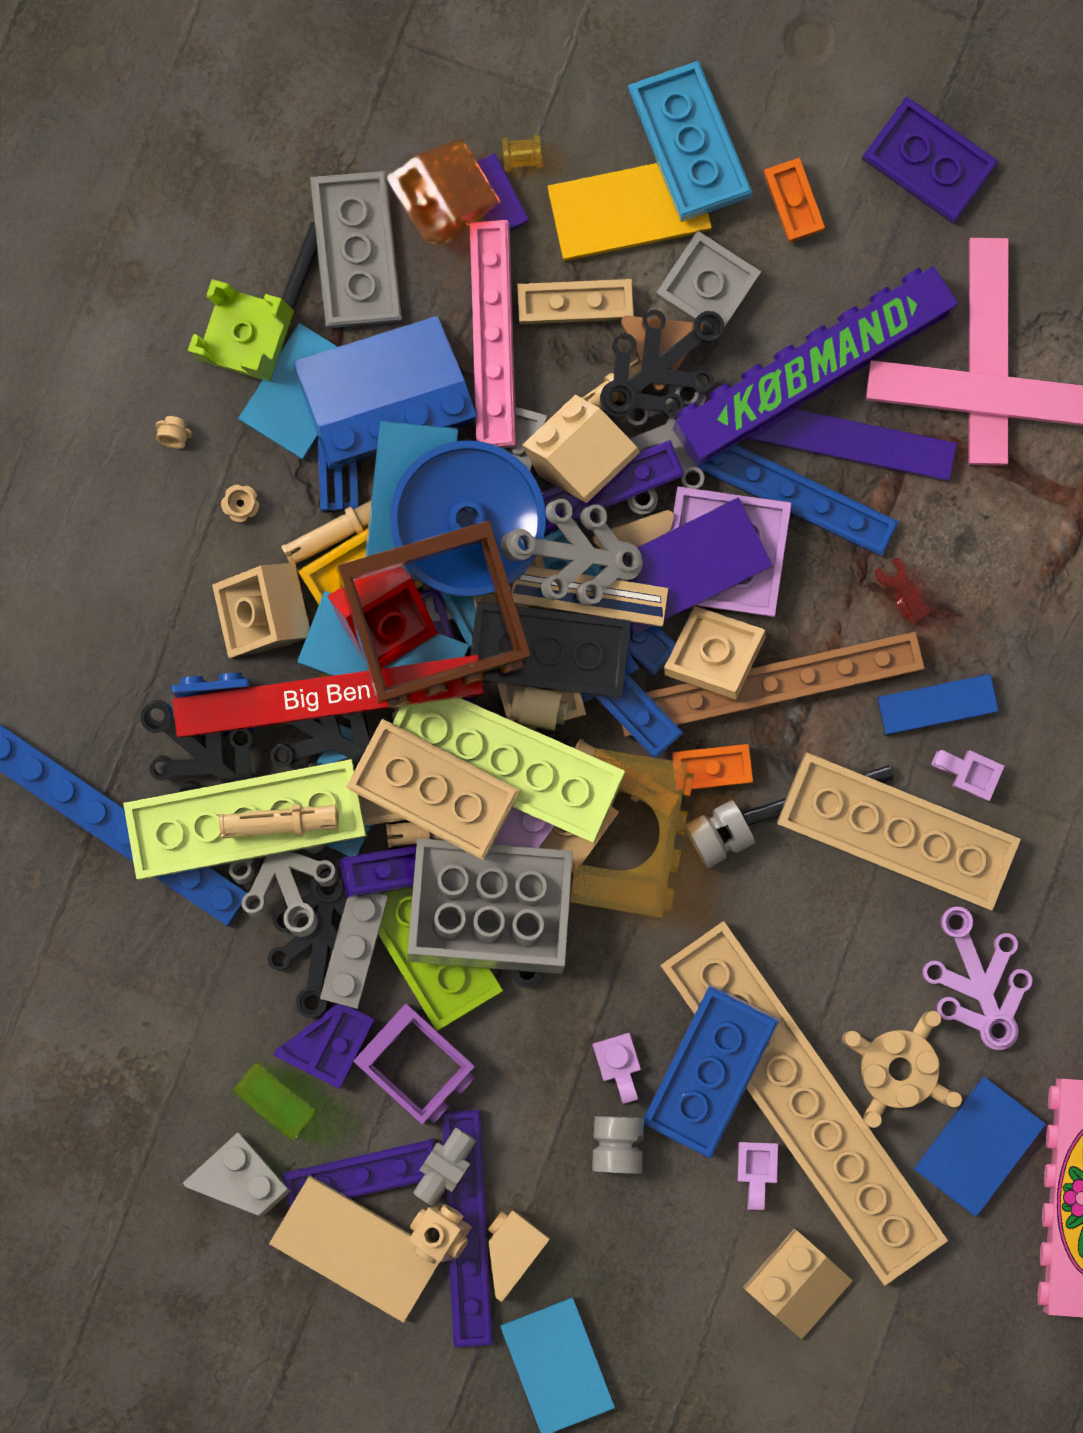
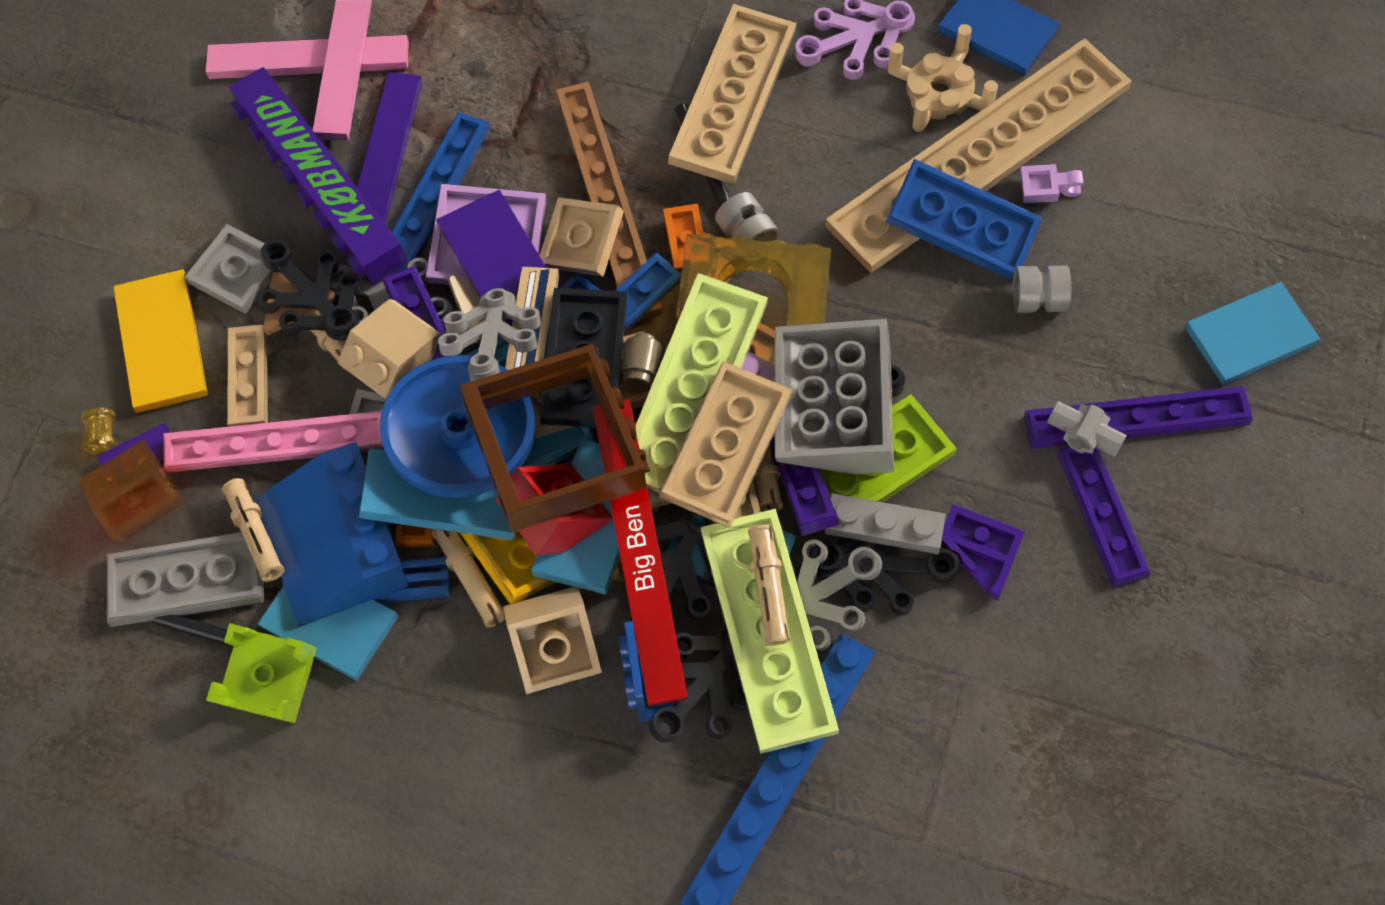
camera: 90 degrees left, 20 degrees down
(173, 432) = (367, 740): tan plate -> none
(236, 493) = (441, 660): tan plate -> none
(239, 1178) = (1126, 621): light grey wing -> none
(275, 1101) = (1045, 585): clear neon green brick -> none
(353, 1248) = (1176, 509): tan tile -> none
(386, 1037) = (971, 494): medium lavender window -> none
(410, 308) = (247, 517): none -> tan pin
(451, 1230) = (1142, 432): tan brick -> none
(512, 1249) = (1156, 371): tan slope -> none
(617, 1061) = (965, 302): lavender plate -> none
(689, 141) = (99, 289): dark azure tile -> none
(794, 200) = (162, 205): orange plate -> none
(797, 1283) = (1137, 151): tan slope -> none
(908, 600) = (524, 98): clear red plate -> none
(930, 160) = (133, 109): dark purple tile -> none
(937, 704) = (619, 77): blue tile -> none
(973, 774) = (676, 45): lavender plate -> none

